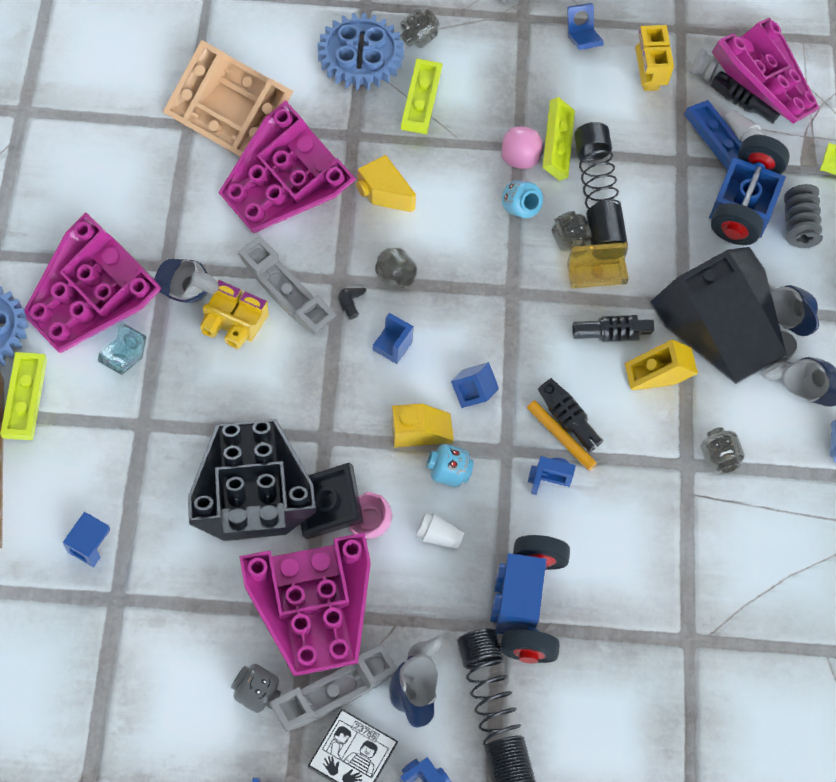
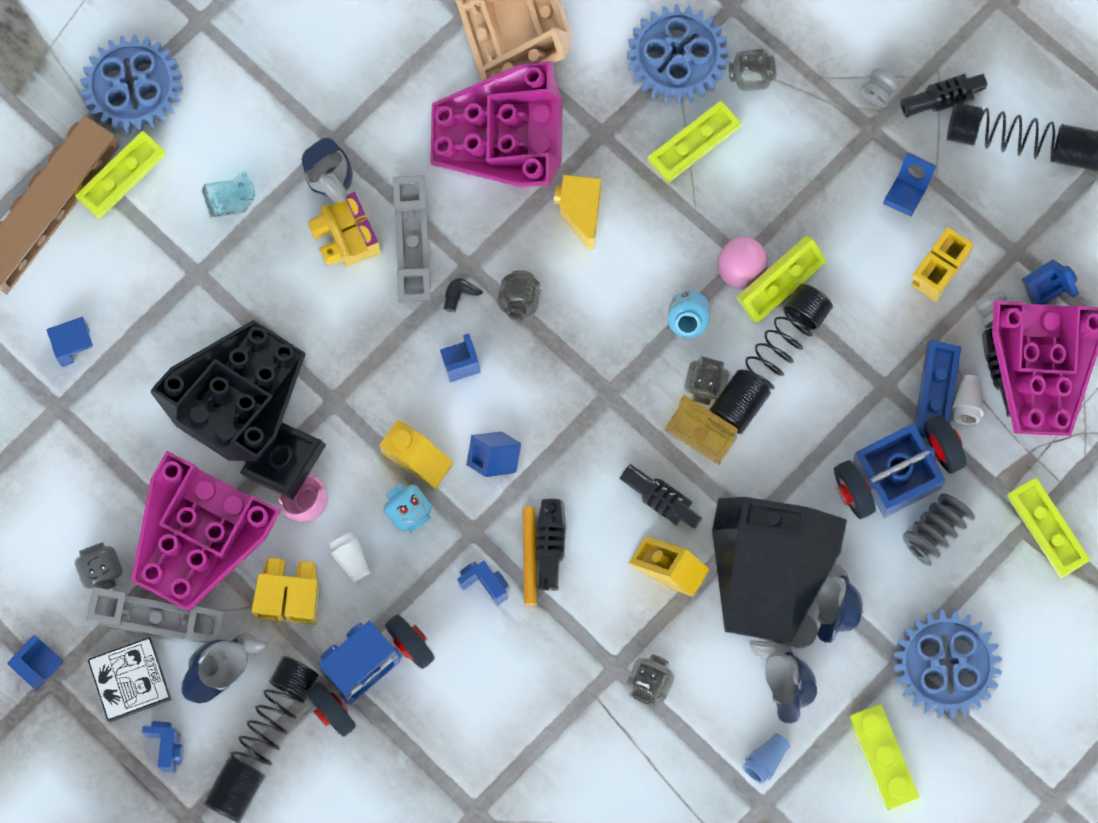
camera: 50 degrees right, 10 degrees up
(87, 286) = (249, 113): dark pink wedge -> none
(420, 595) = (297, 593): none -> yellow hips
(723, 22) = (1050, 282): none -> blue bracket

